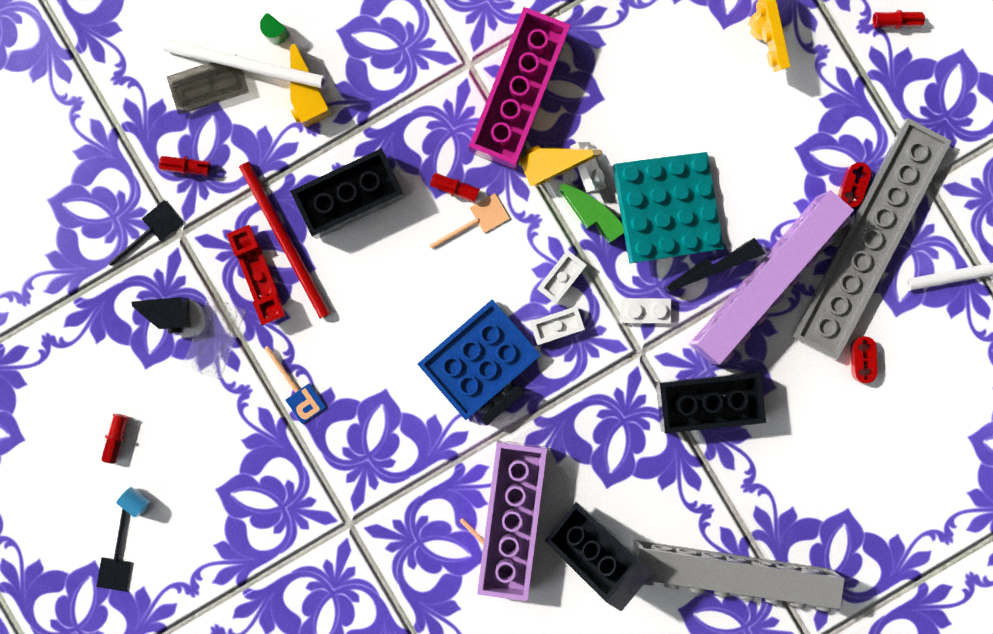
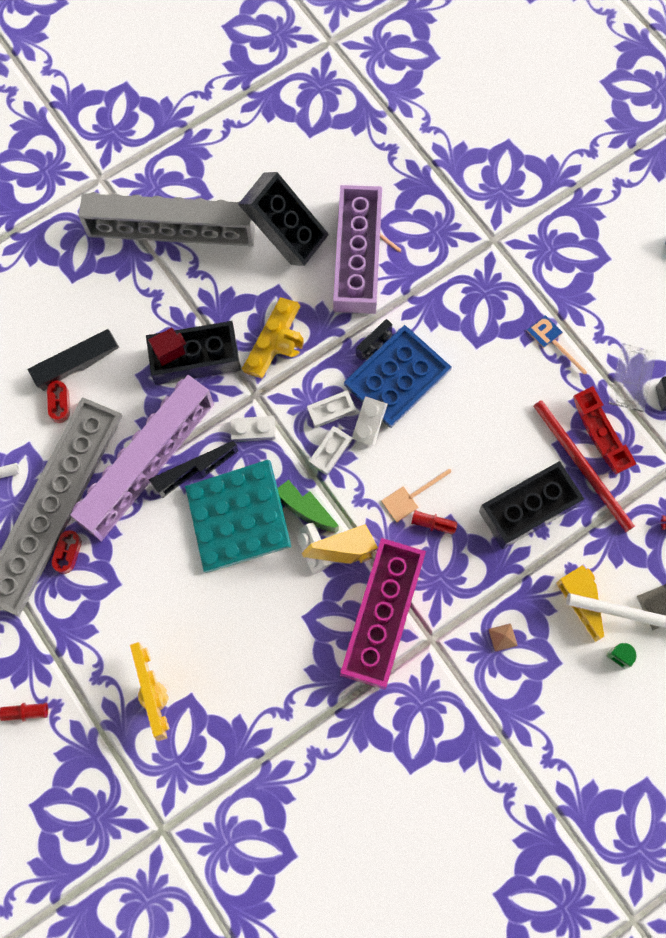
camera: 175 degrees right, 15 degrees down
(395, 60) = (502, 637): none -> medium nougat slope
(515, 306) = (369, 421): none -> white plate
(615, 416) = (275, 339): none -> yellow plate
(741, 402) = (167, 346): none -> dark red brick
(847, 408) = (76, 357): none -> black slope

